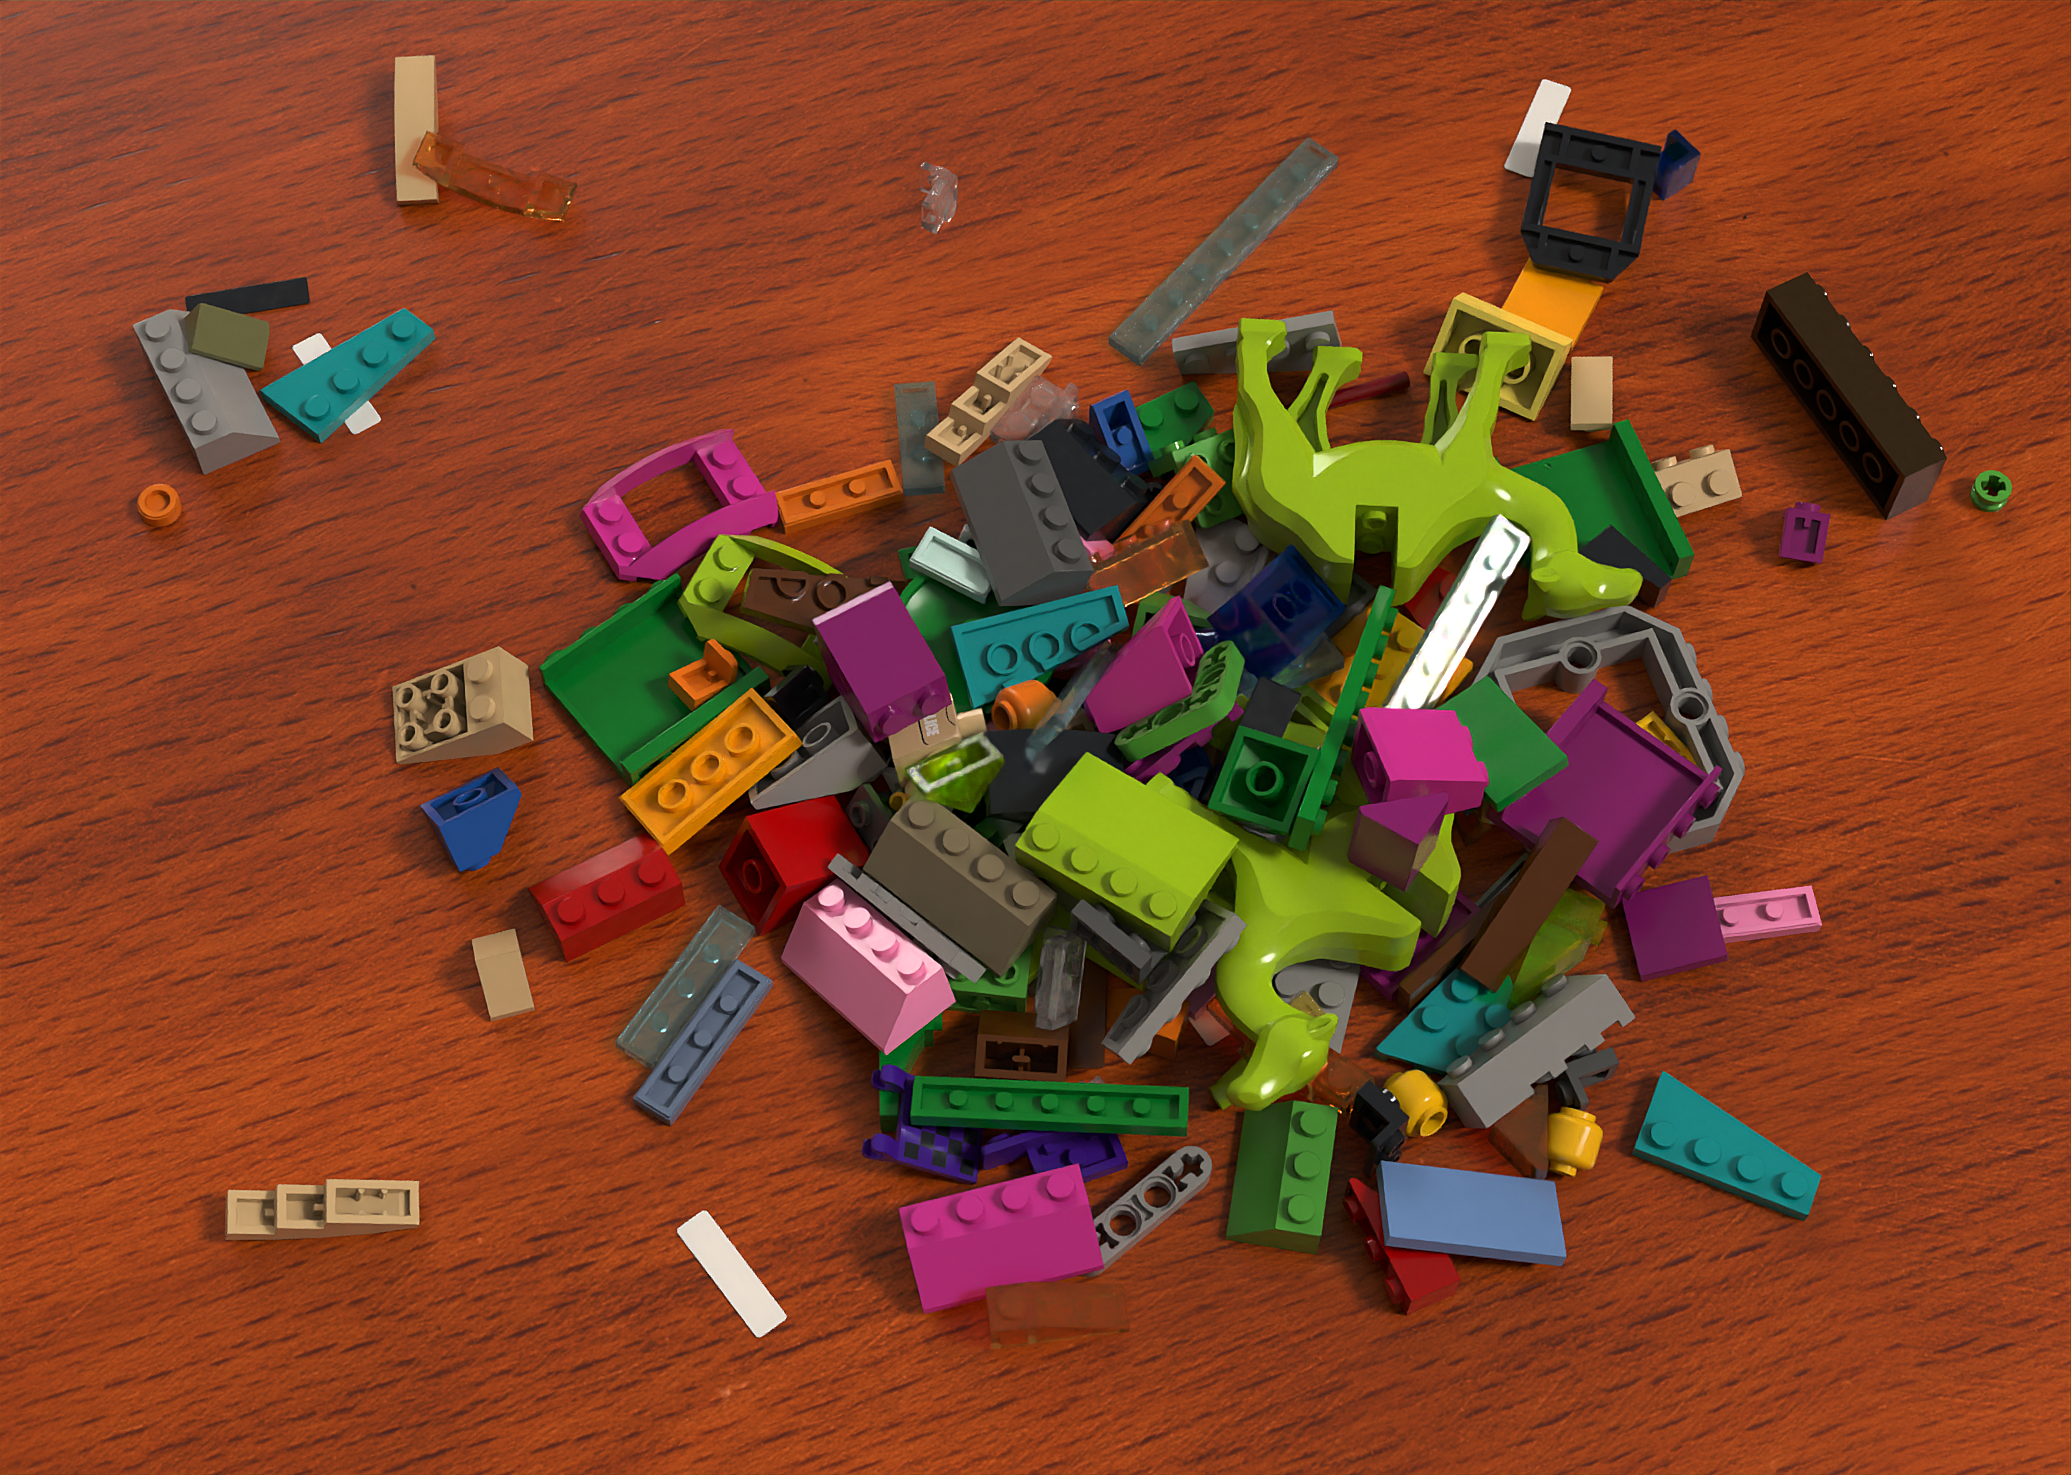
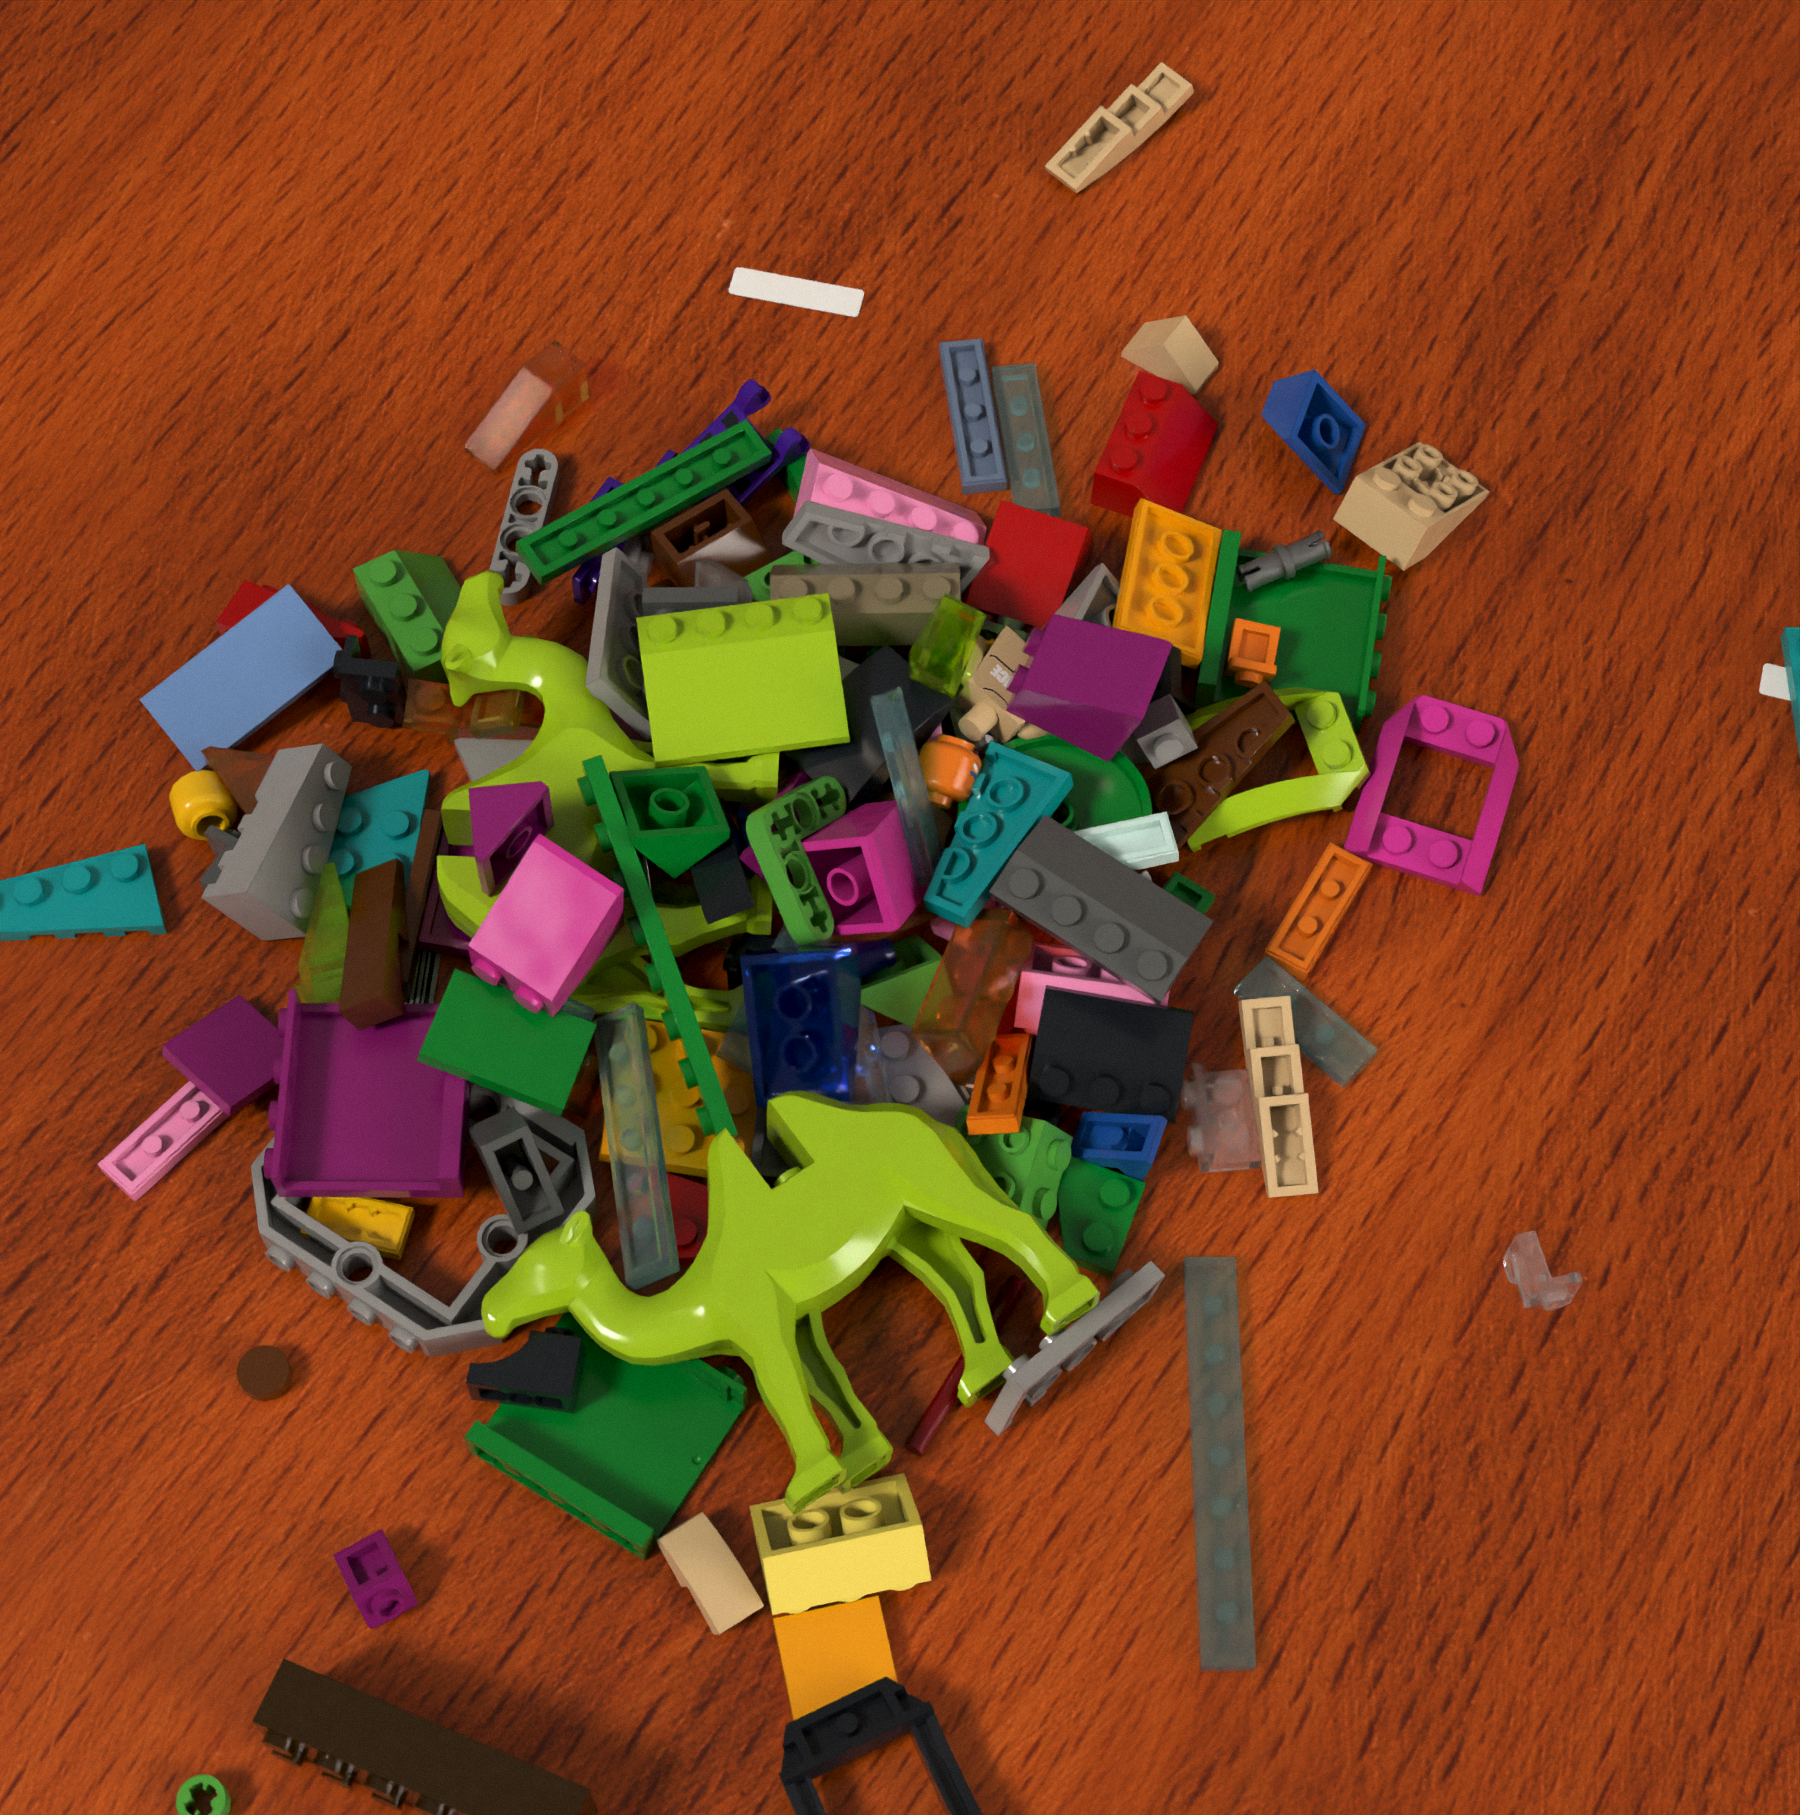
camera: 140 degrees right, 0 degrees up
(608, 725) = (1283, 561): none -> flat silver pin
(1001, 1236) = (610, 421): dark pink slope -> none
(1420, 1100) = (362, 742): yellow head -> none
(1544, 678) = (516, 1169): none -> dark grey slope
(1699, 481) = (534, 1551): tan bracket -> none
(1792, 708) = (264, 1373): none -> reddish brown tile

